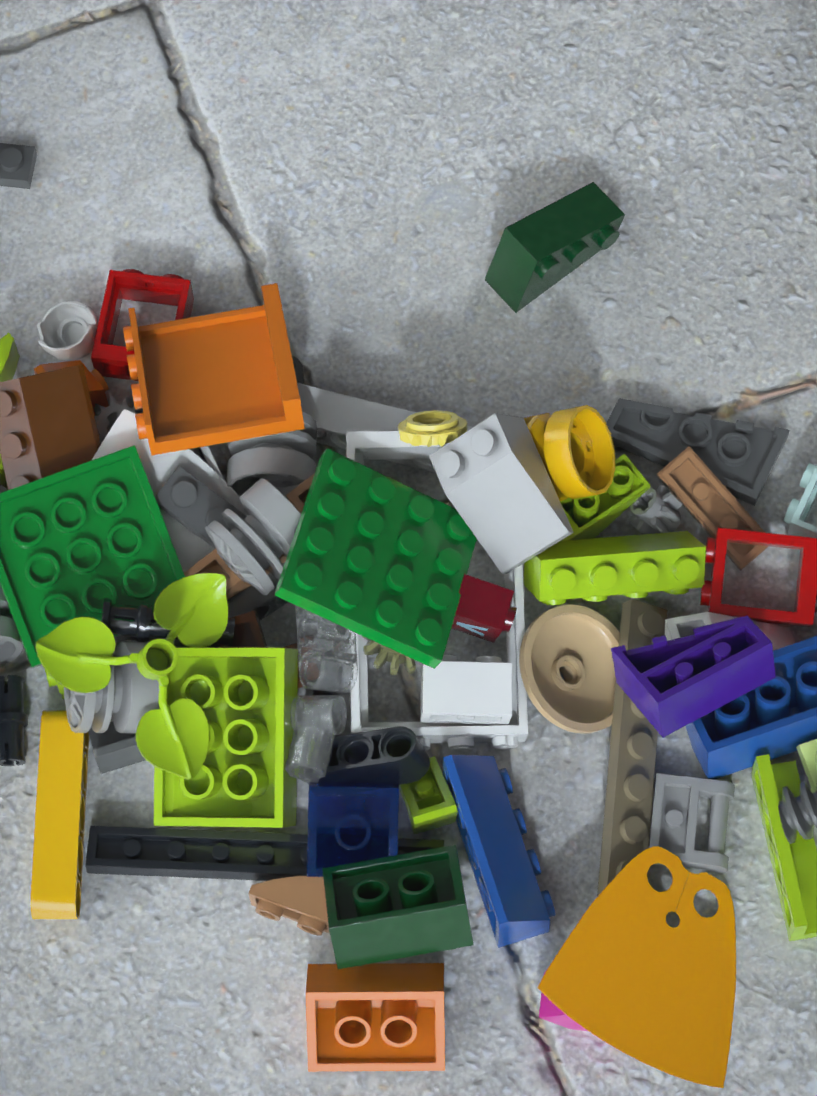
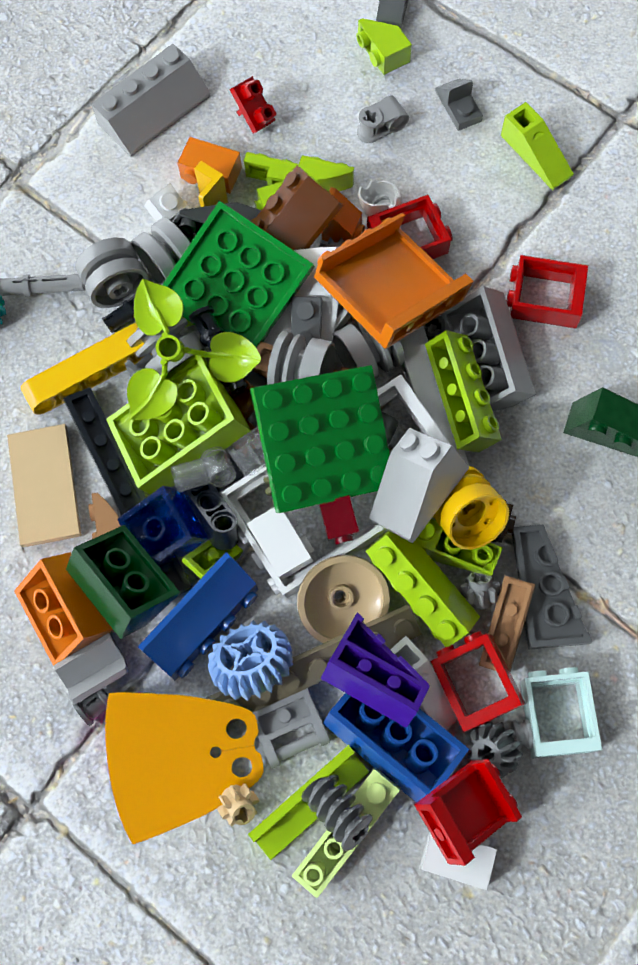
camera: 60 degrees right, 5 degrees up
(125, 112) = (535, 145): none -> lime slope
(186, 959) = (43, 485): none -> tan tile
(353, 188) = (549, 270): none -> red window
(365, 331) = (495, 346): none -> light grey slope
(397, 381) = (463, 391): none -> lime brick
(431, 428) = (430, 419): light yellow gear -> none
(479, 1016) = (92, 668): none -> light grey panel
(533, 1053) = (92, 706): none -> dark grey bush
(586, 814) = (253, 667): none -> light blue gear
(750, 928) = (238, 804): none -> tan gear

